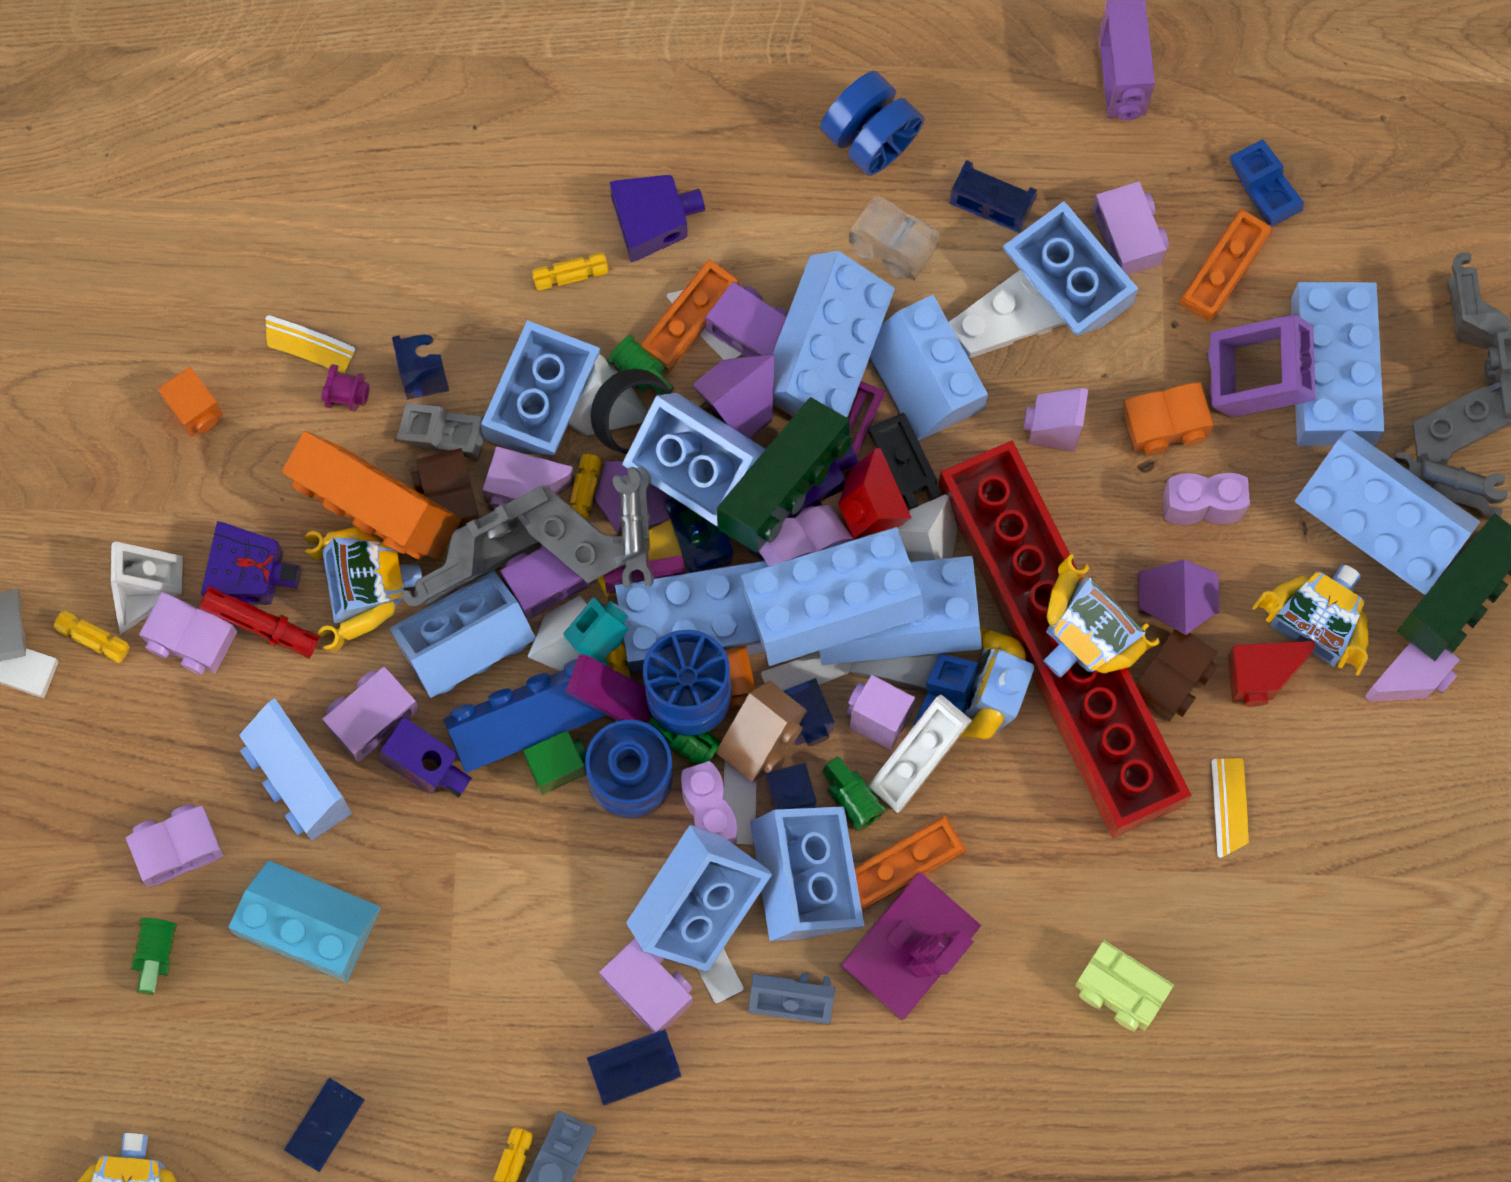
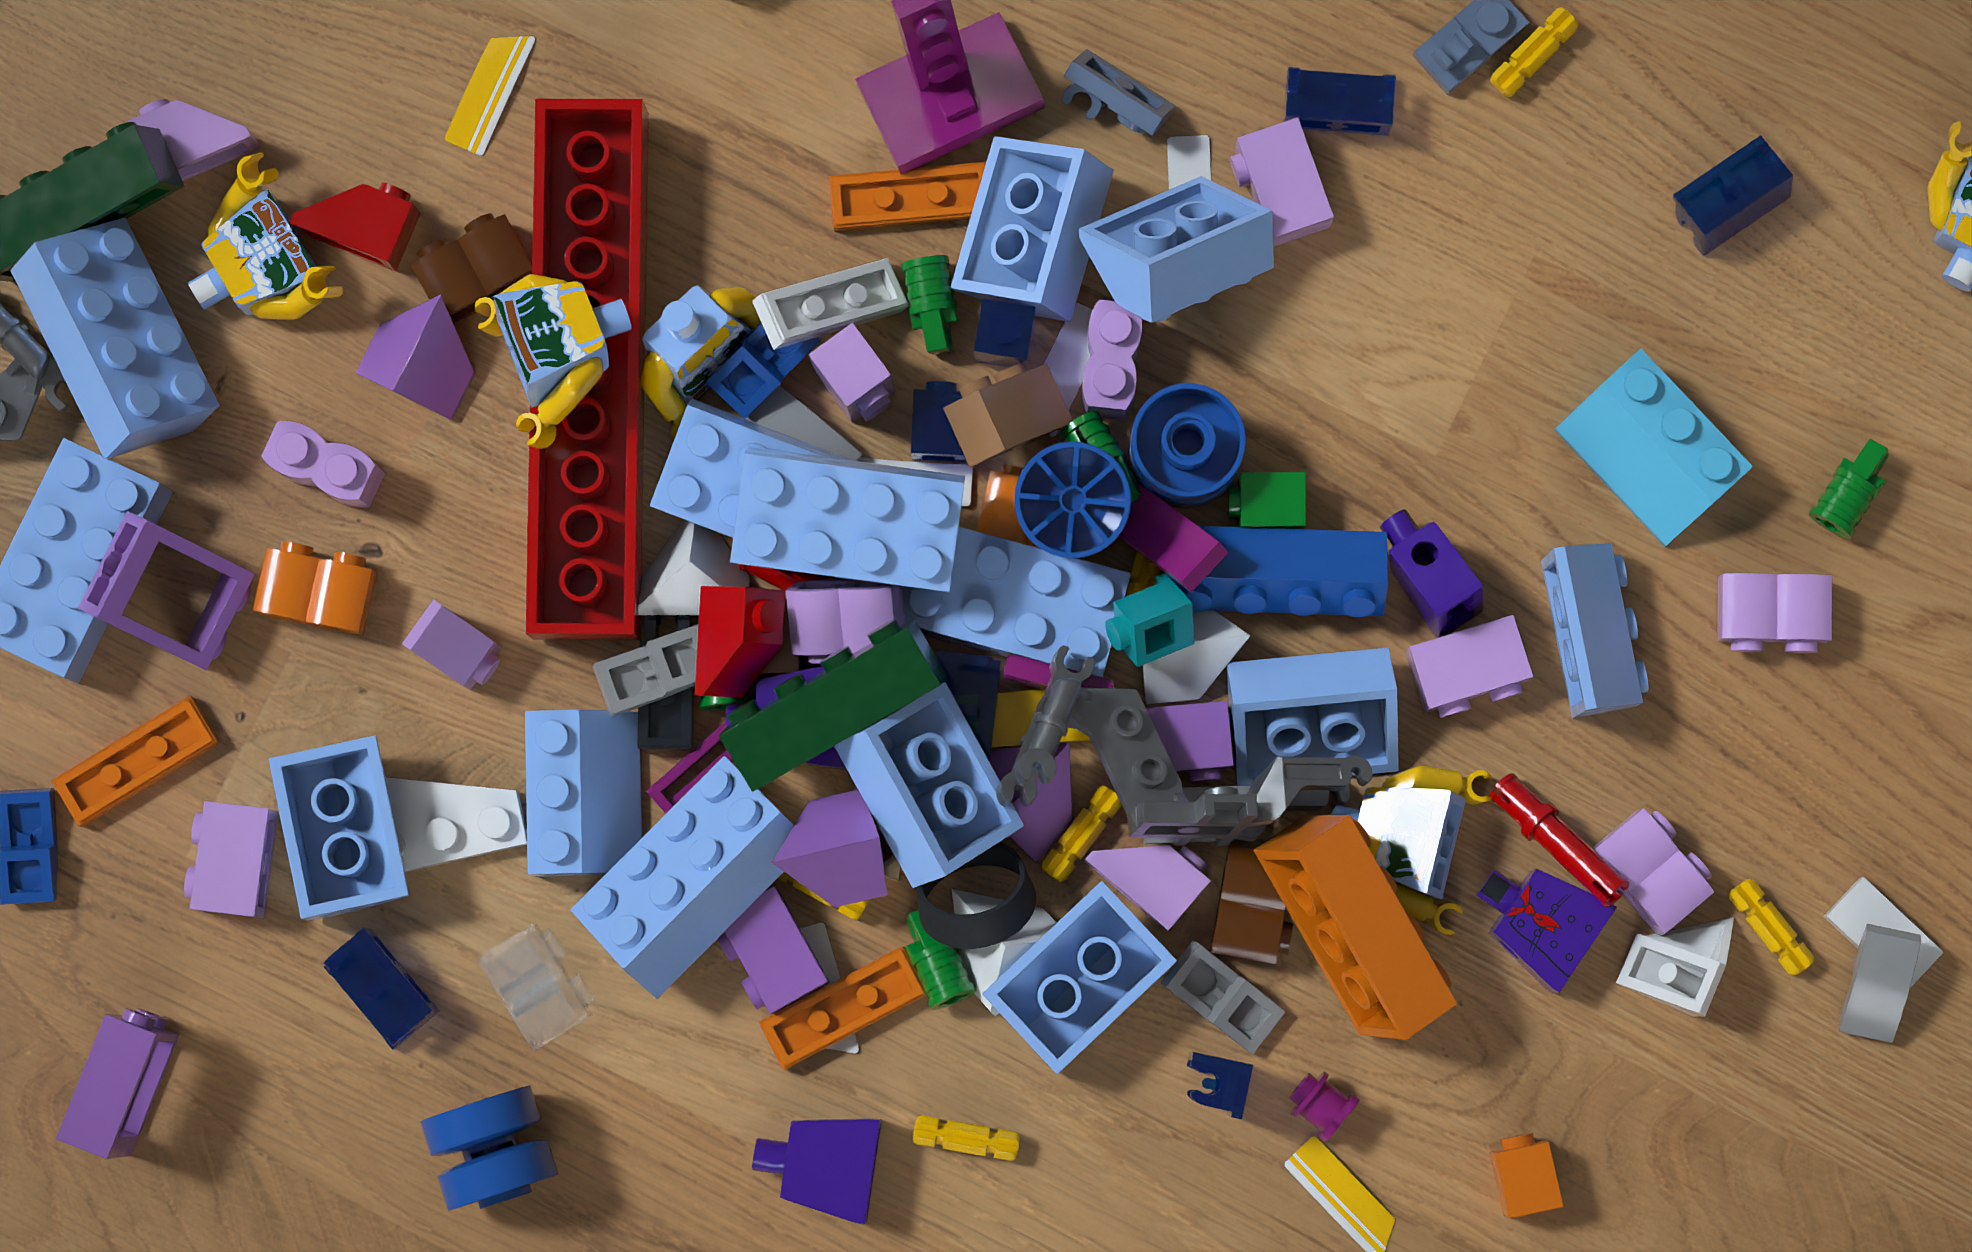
camera: 145 degrees left, 10 degrees up
(920, 458) = (649, 672): none -> light grey slope

